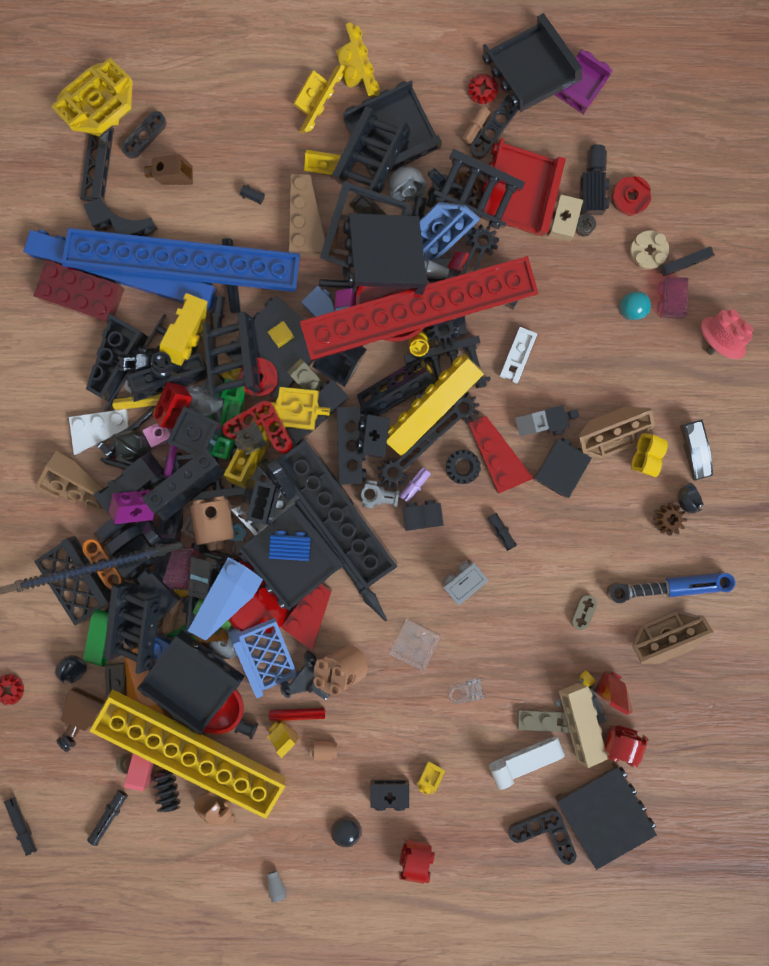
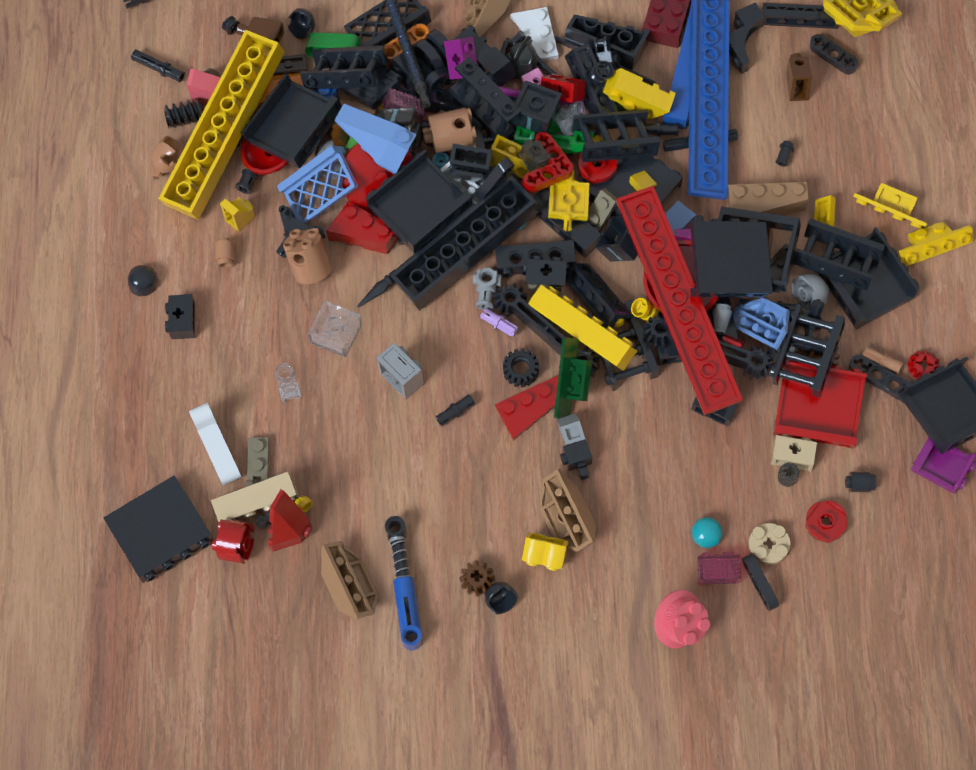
camera: 85 degrees right, 20 degrees down
(127, 403) = (562, 51): yellow axle -> none
(276, 888) = (86, 218): light grey cone -> none
(289, 546) = (429, 196): blue brick -> none
(297, 714) = (260, 228): red axle -> none
(415, 861) = (113, 341): red brick -> none
(422, 516) = (466, 331): black brick -> none
(430, 778) = (197, 354): yellow bracket -> none
(485, 417) = (572, 378): none -> dark green bracket
(518, 354) = (643, 415): white plate -> none
(552, 828) = (144, 478): black beam -> none
(562, 468) = (525, 464): black brick -> none
(588, 614) = (374, 493): dark tan beam -> none
(593, 193) = (823, 480): black brick -> none
(697, 449) = (554, 603): slope -> none

